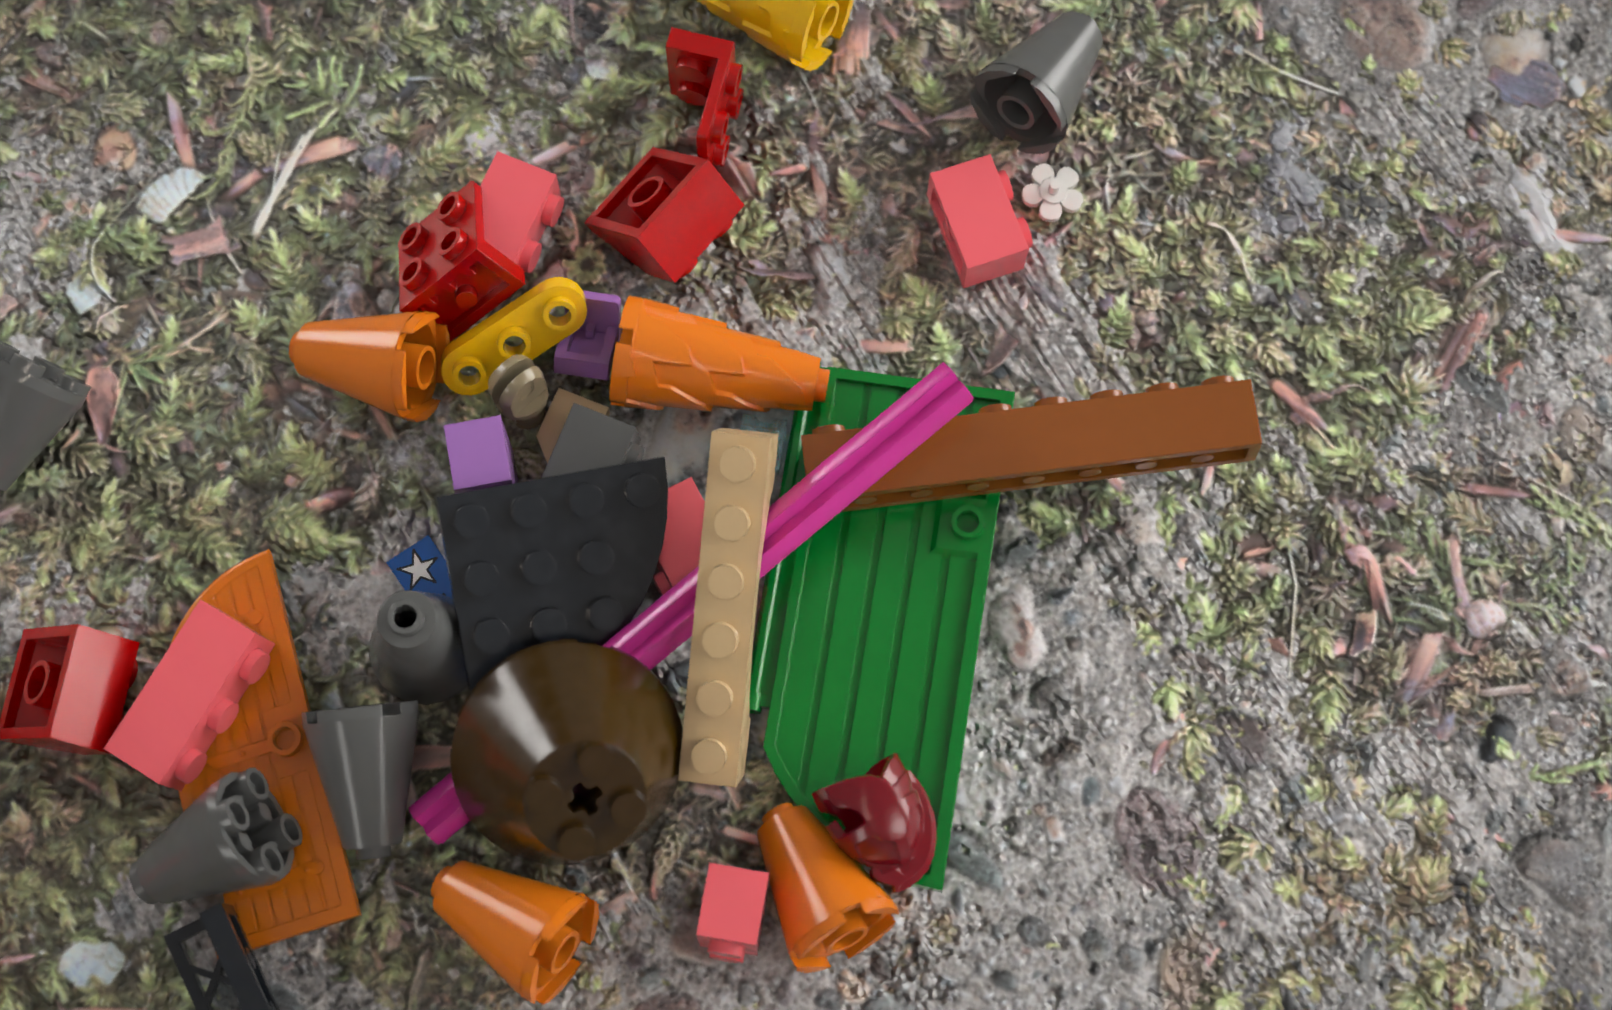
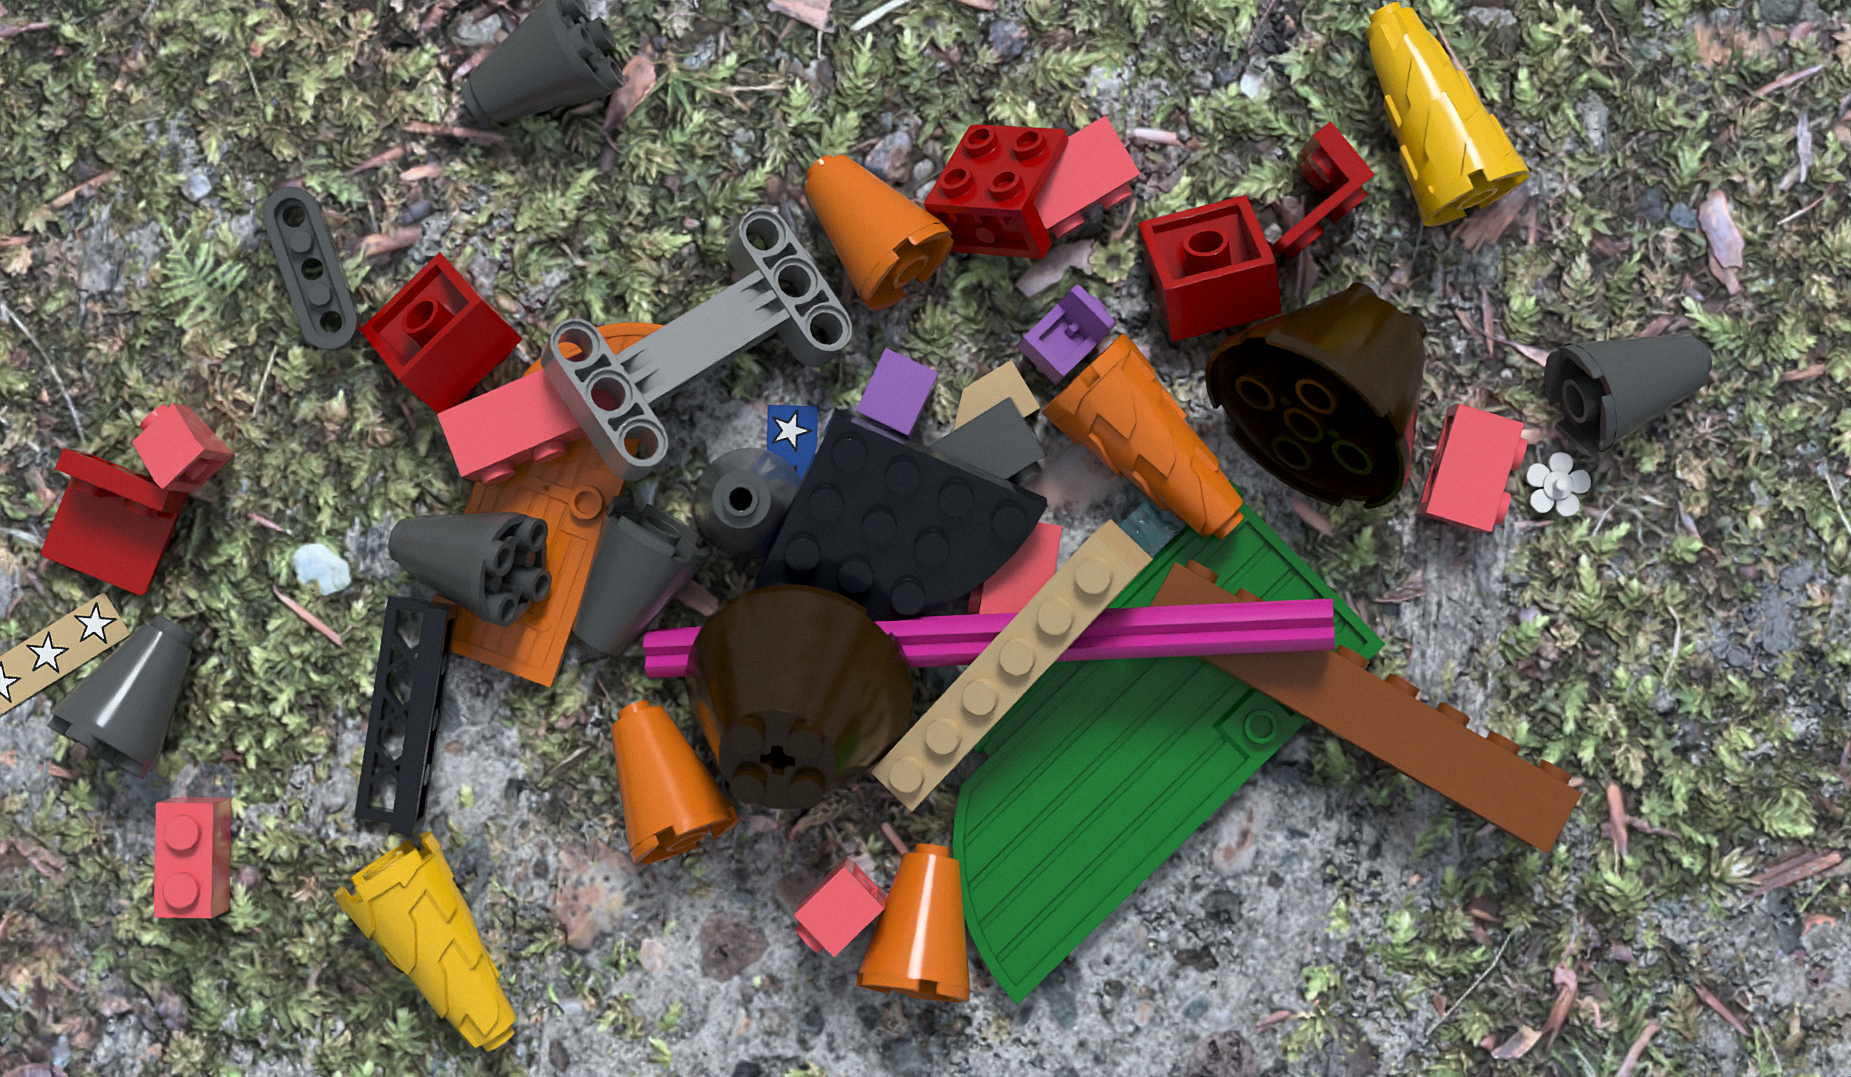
camera: 40 degrees right, 15 degrees up
(322, 466) = (696, 343): none -> light grey beam
(519, 391) = (972, 351): dark tan arm -> none
(525, 318) = (969, 291): yellow plate -> none
(822, 237) = (1326, 395): none -> dark brown cone
(884, 822) = (1008, 925): dark red helmet -> none

